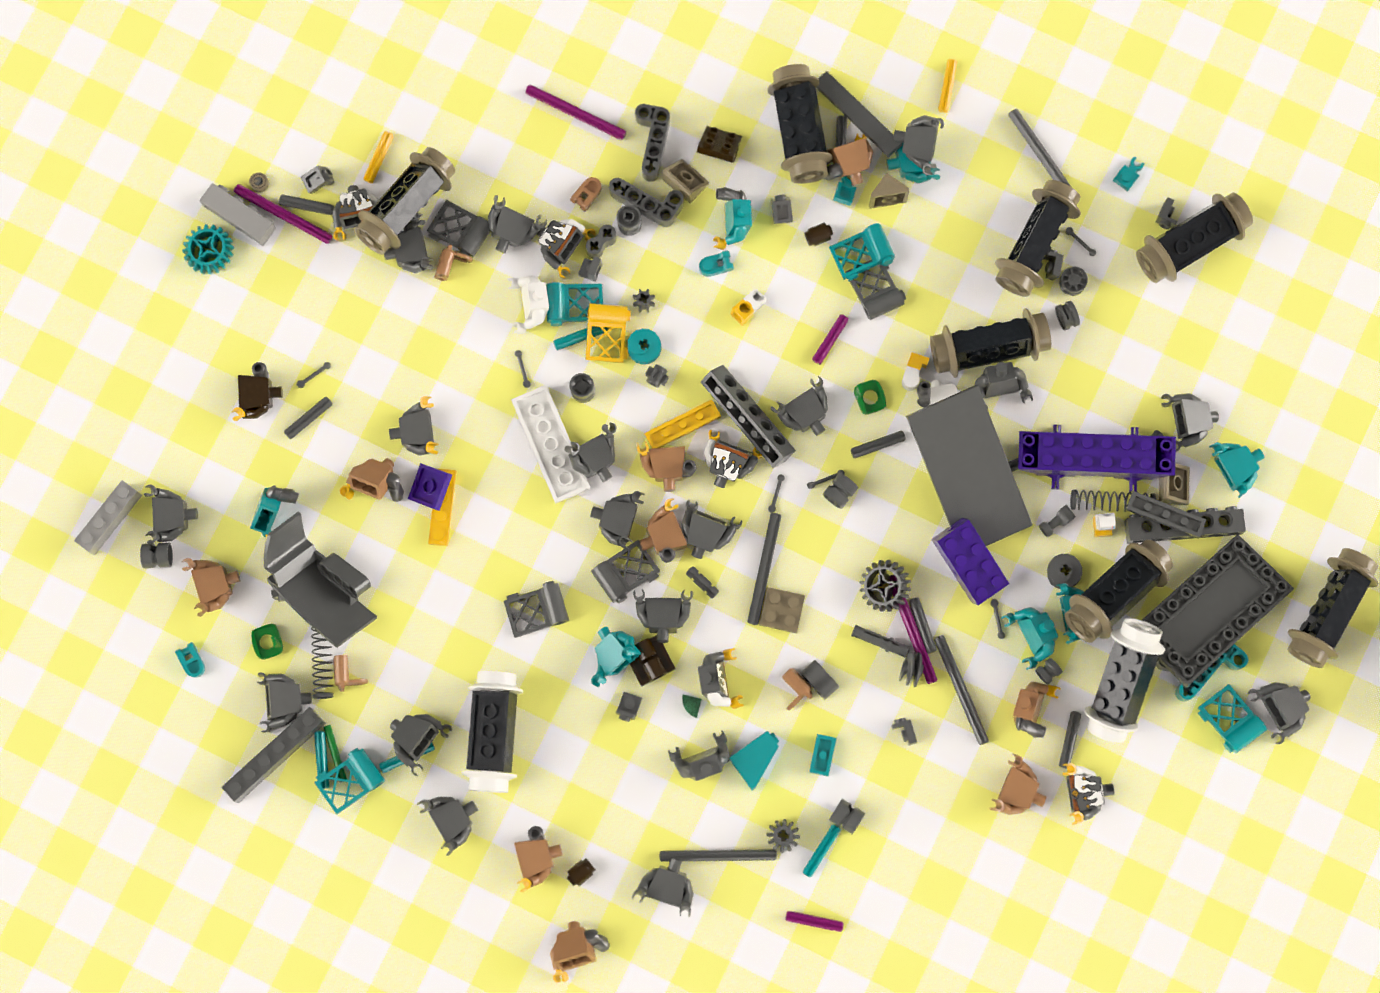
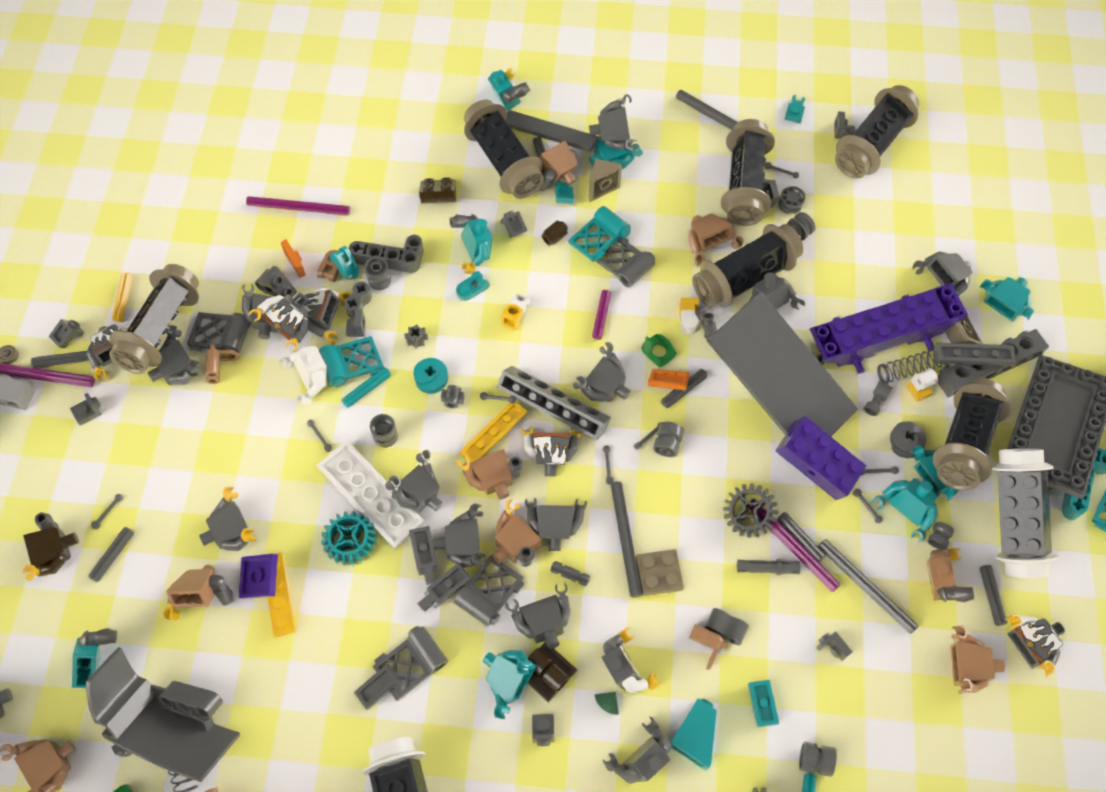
camera: 25 degrees left, 15 degrees down
(318, 267) = (86, 410): none -> dark grey bracket
(502, 620) = (377, 686): none -> dark grey tile
(511, 464) = (359, 524): none -> teal gear
(527, 198) = (274, 283): none -> dark grey pin
(527, 242) = (286, 316): none -> torso
(554, 172) = (293, 257): none -> orange plate
(580, 517) = (424, 553): none -> dark grey hinge
(588, 555) = (445, 587): none -> dark grey hinge
(602, 204) = (349, 268): none -> teal plate
(610, 317) = (387, 360): yellow piece -> none
(653, 143) = (375, 188): dark grey beam -> none
(685, 179) = (411, 225): dark tan slope -> none
(687, 384) = (484, 396): none -> dark grey hinge
(829, 46) = (504, 89): none -> torso
(866, 431) = (668, 379): none -> orange plate
(912, 667) = (812, 581): dark grey piece -> none
(947, 85) = (614, 85): yellow axle -> none
(972, 290) = (710, 232): none -> medium nougat torso
(1039, 595) = (894, 470): none -> dark grey hinge

